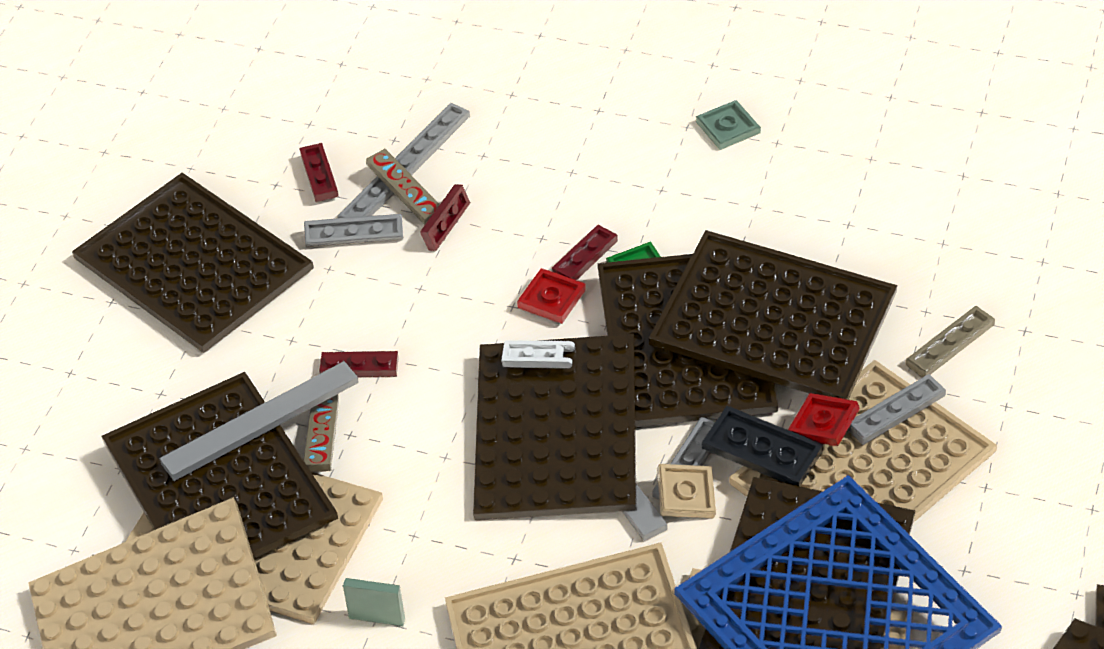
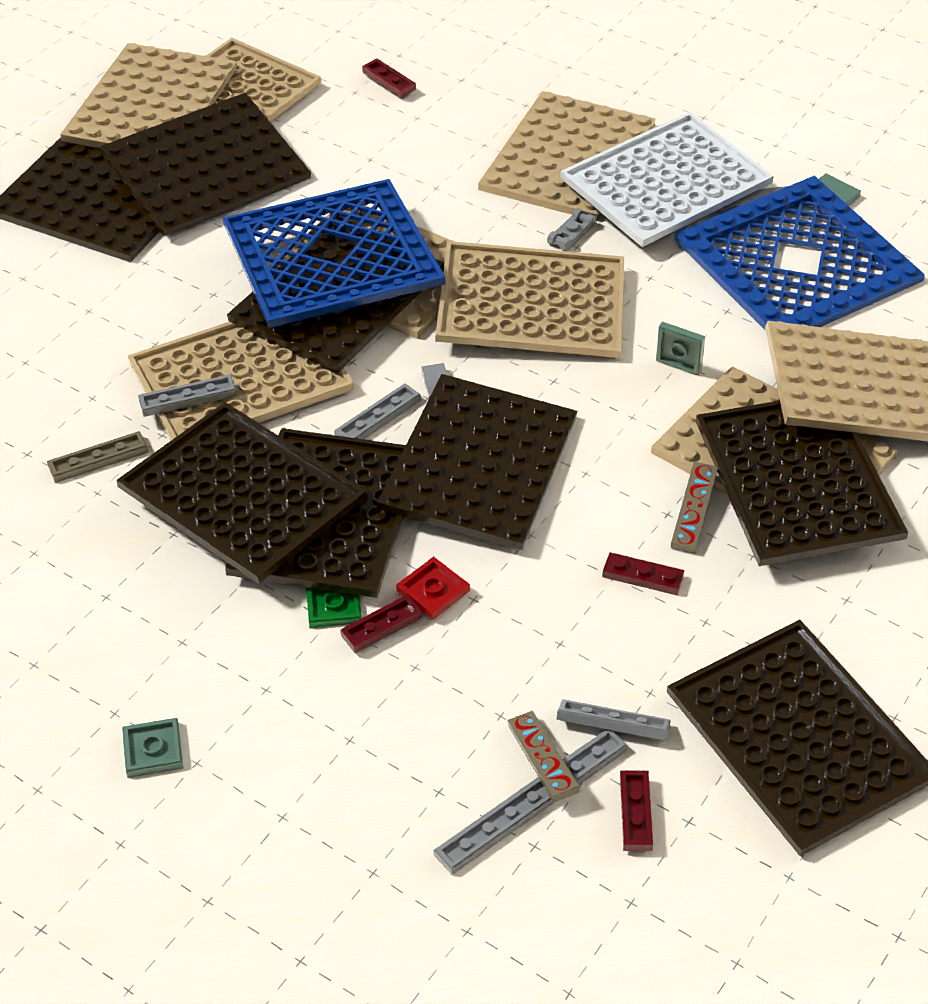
camera: 165 degrees left, 0 degrees up
(258, 421) = (751, 501): light grey tile -> none
(445, 217) = (510, 703): dark red plate -> none
(536, 354) = (475, 496): white hinge -> none
(686, 491) = (394, 383): tan tile -> none
(762, 446) = (316, 387): black plate -> none
(824, 418) = (254, 389): red plate -> none

